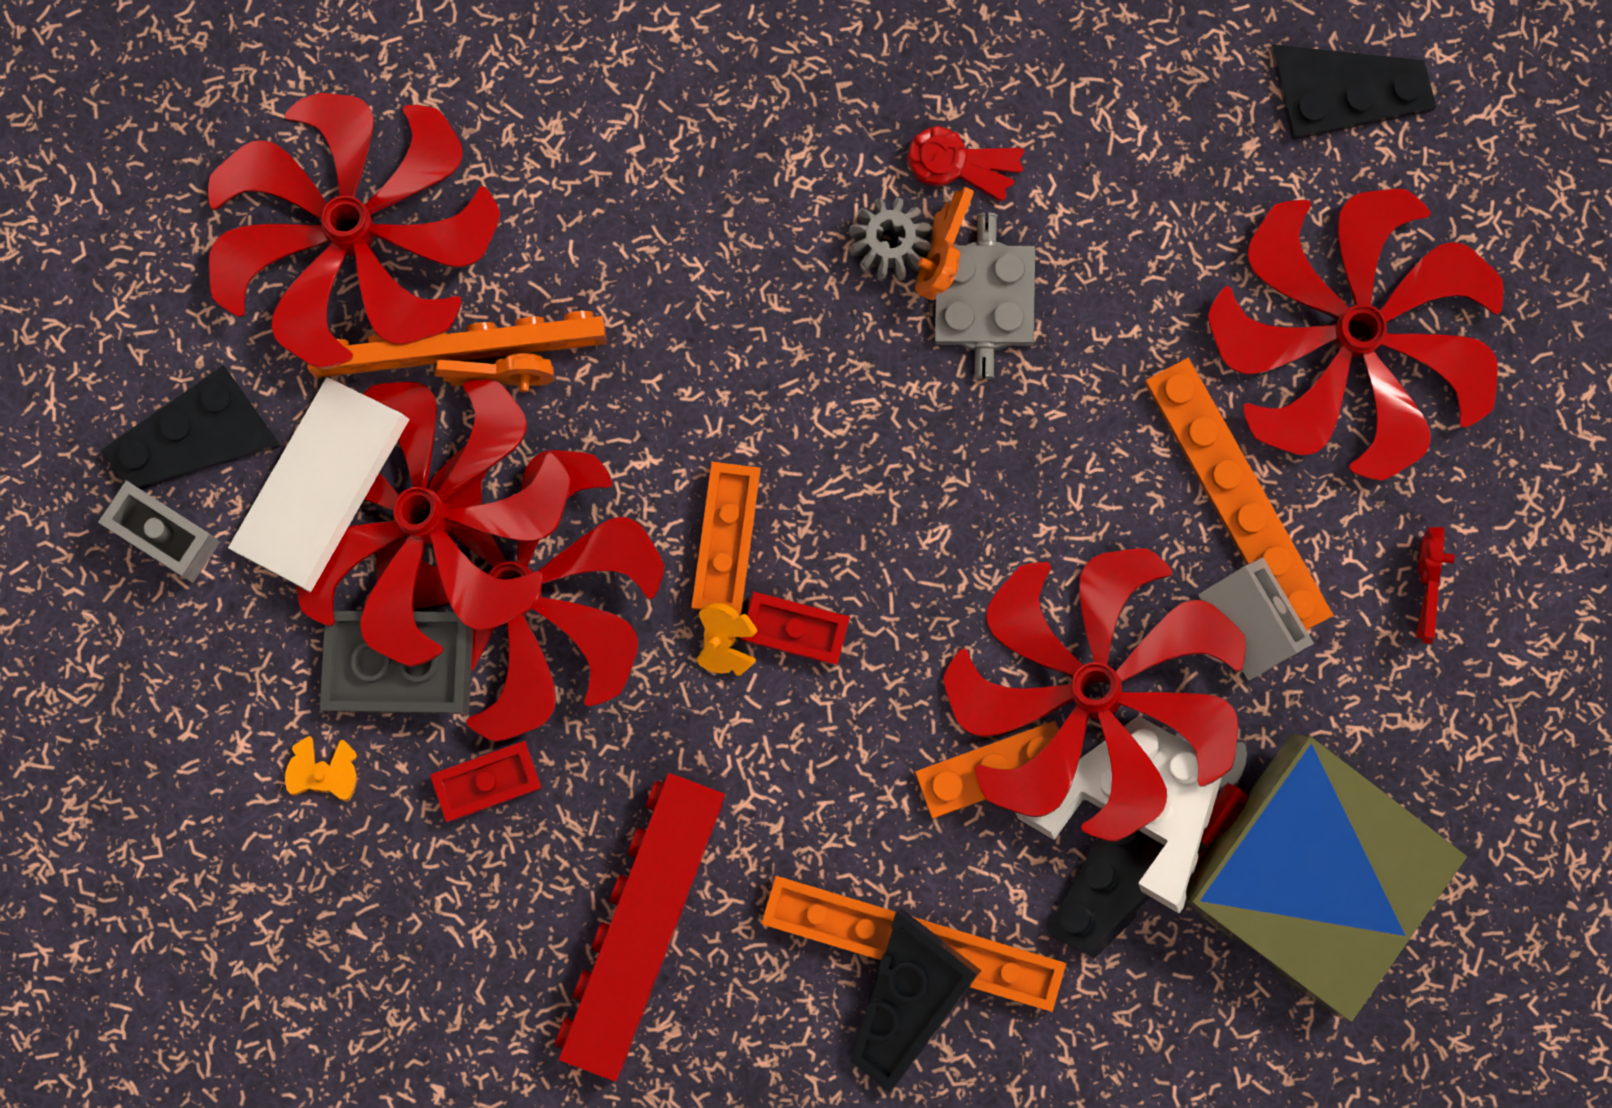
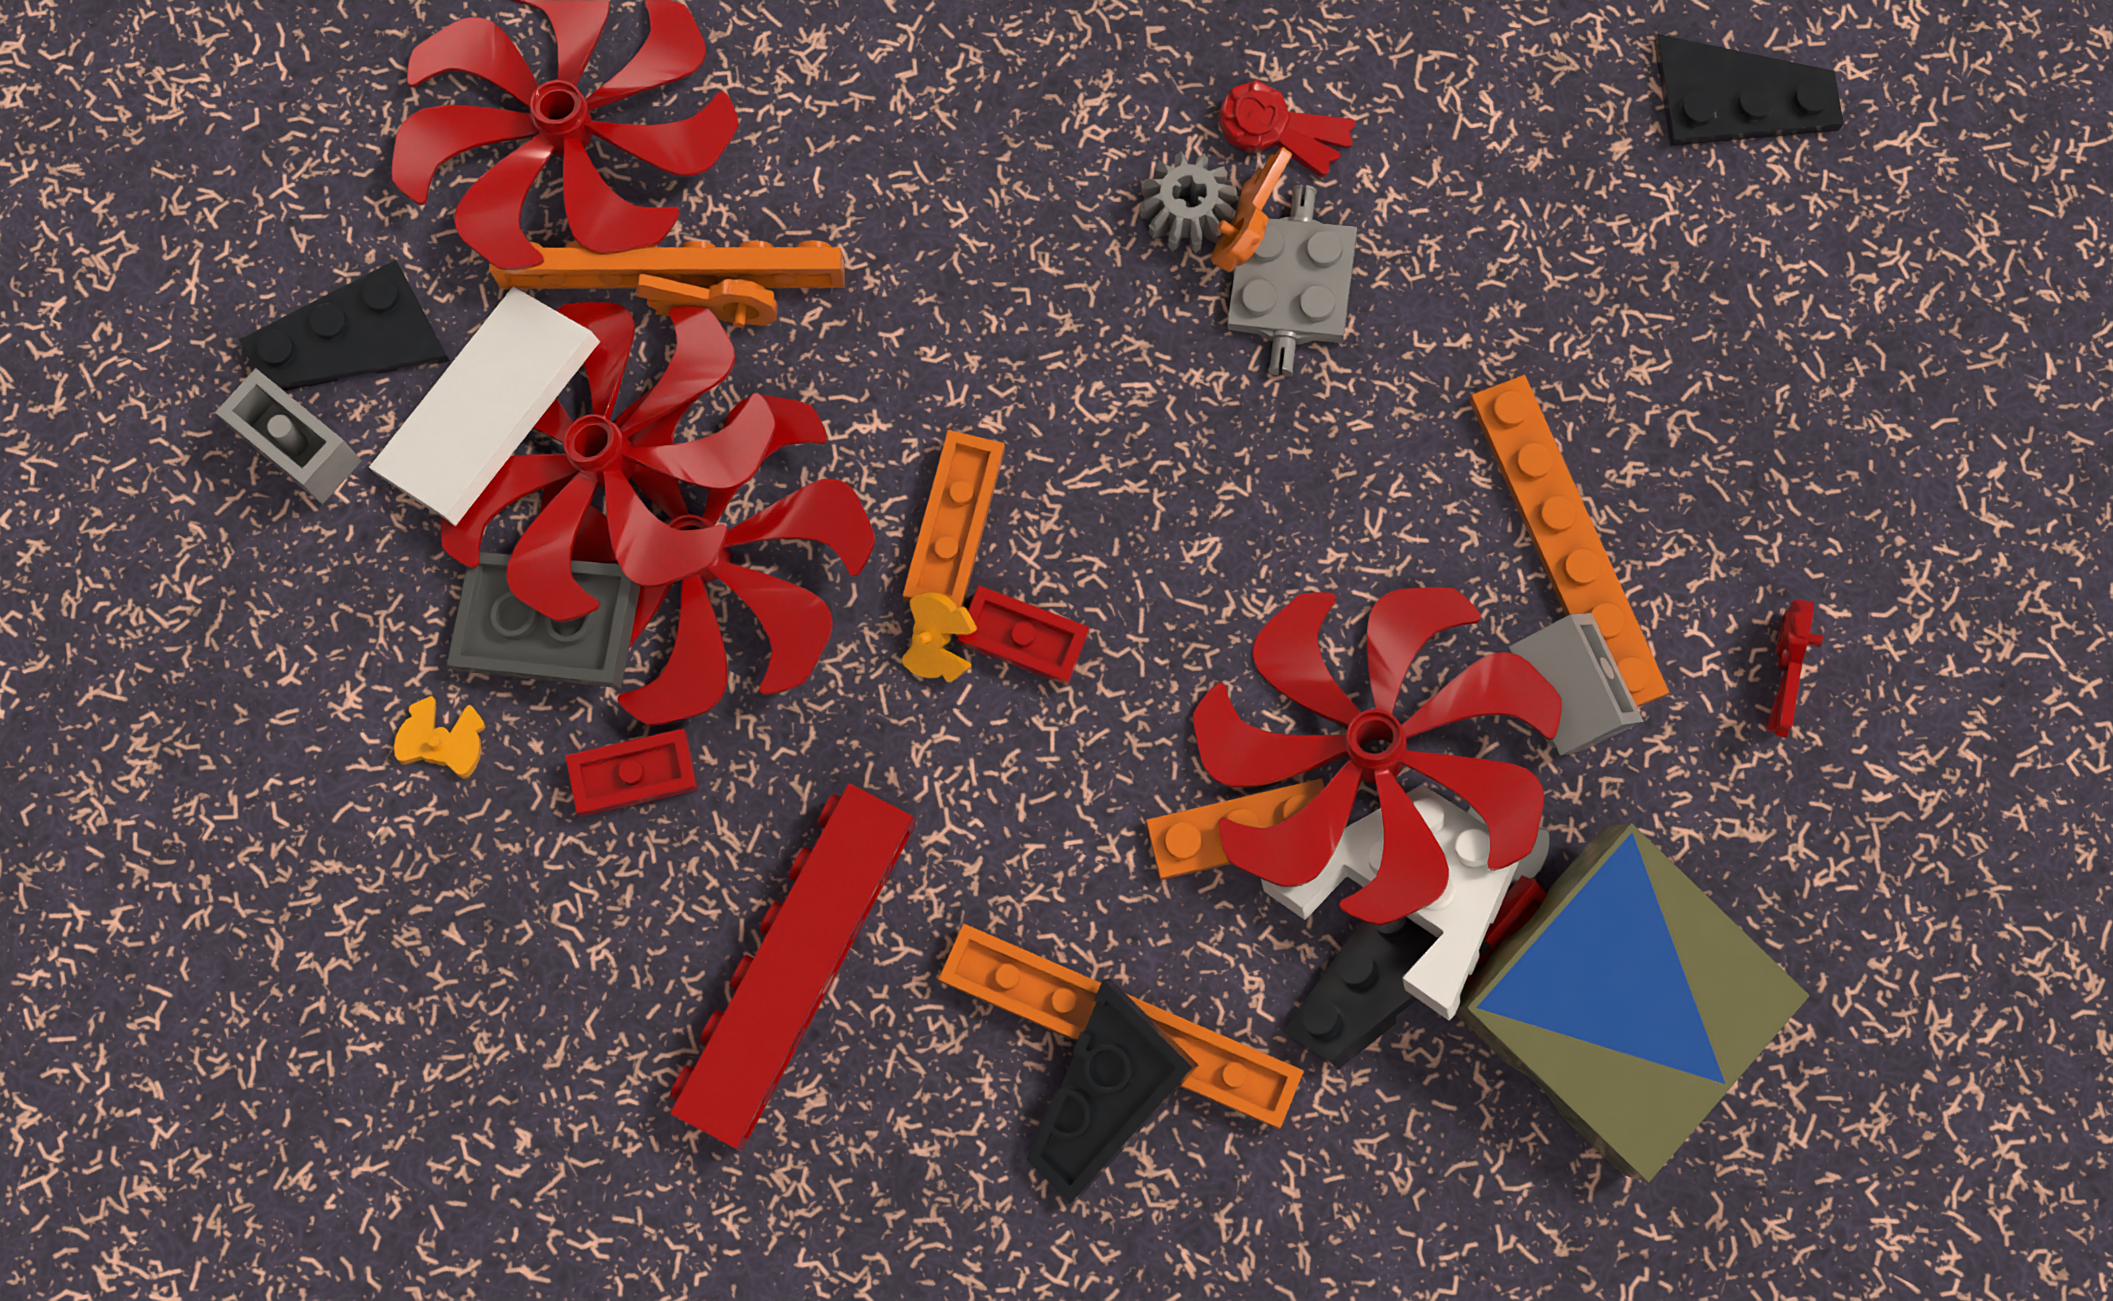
camera: 10 degrees right, 5 degrees down
(1362, 230) = (1744, 252): red piece -> none

